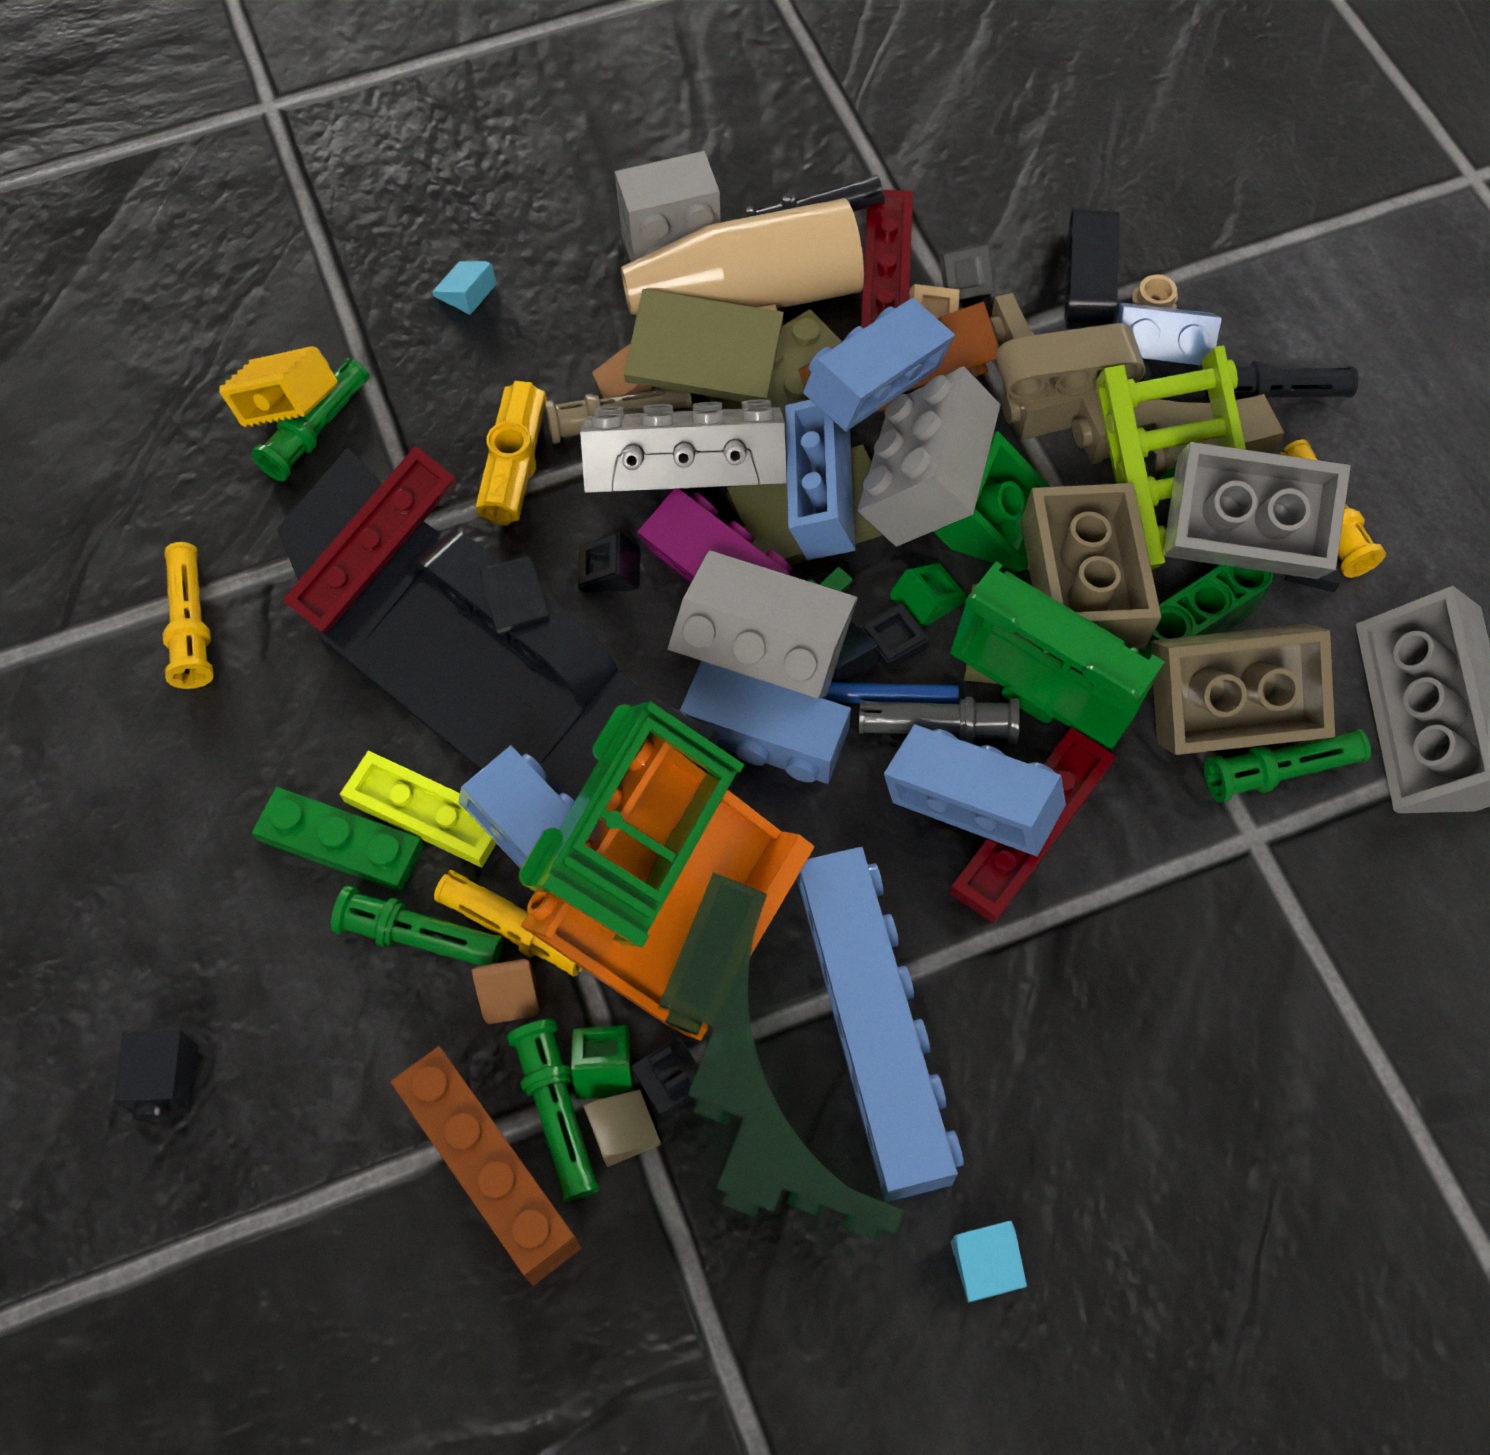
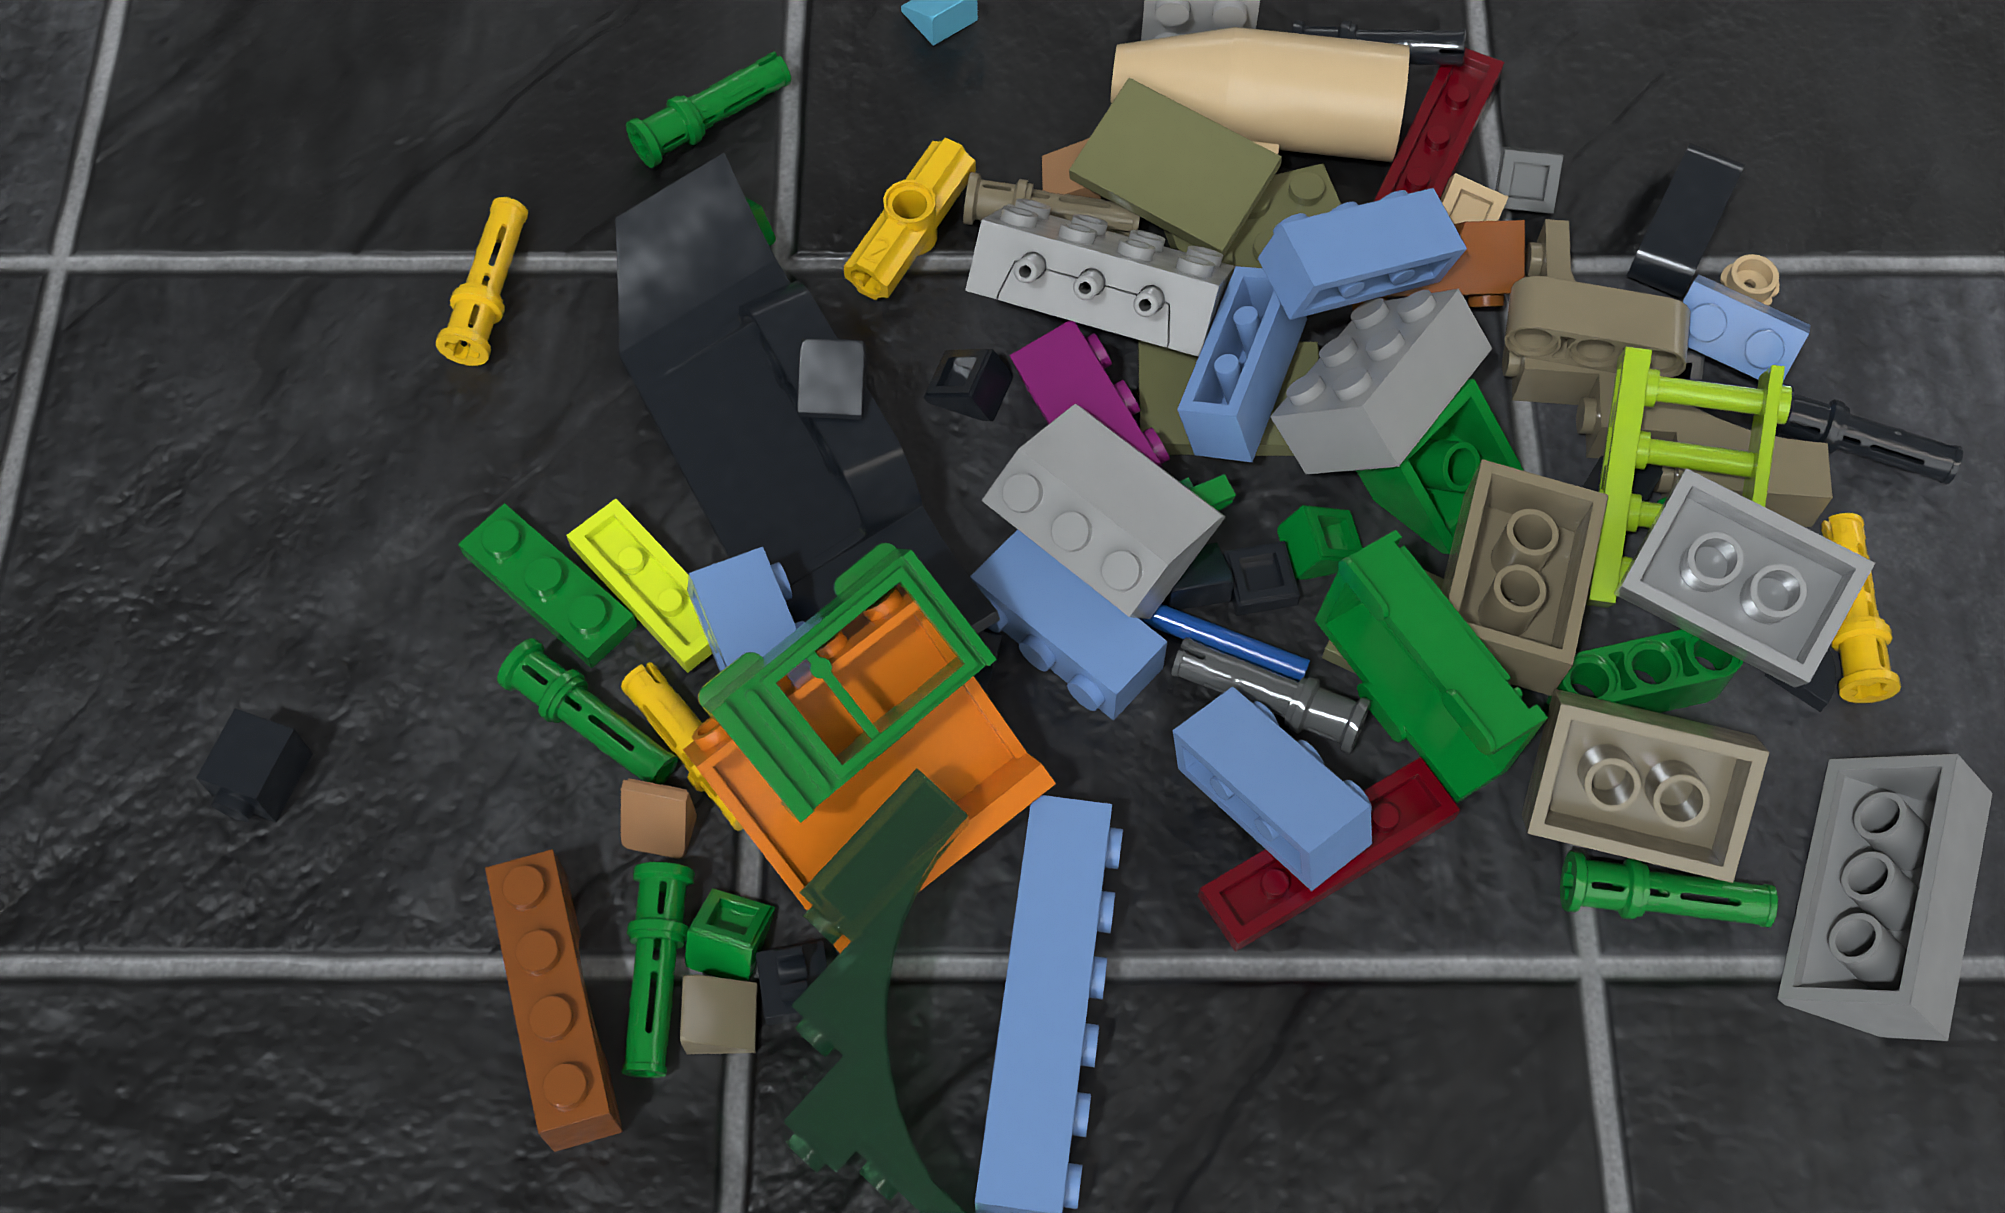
camera: 20 degrees right, 0 degrees up
(279, 386) = (683, 60): yellow brick -> none
(370, 540) = (709, 265): dark red plate -> none

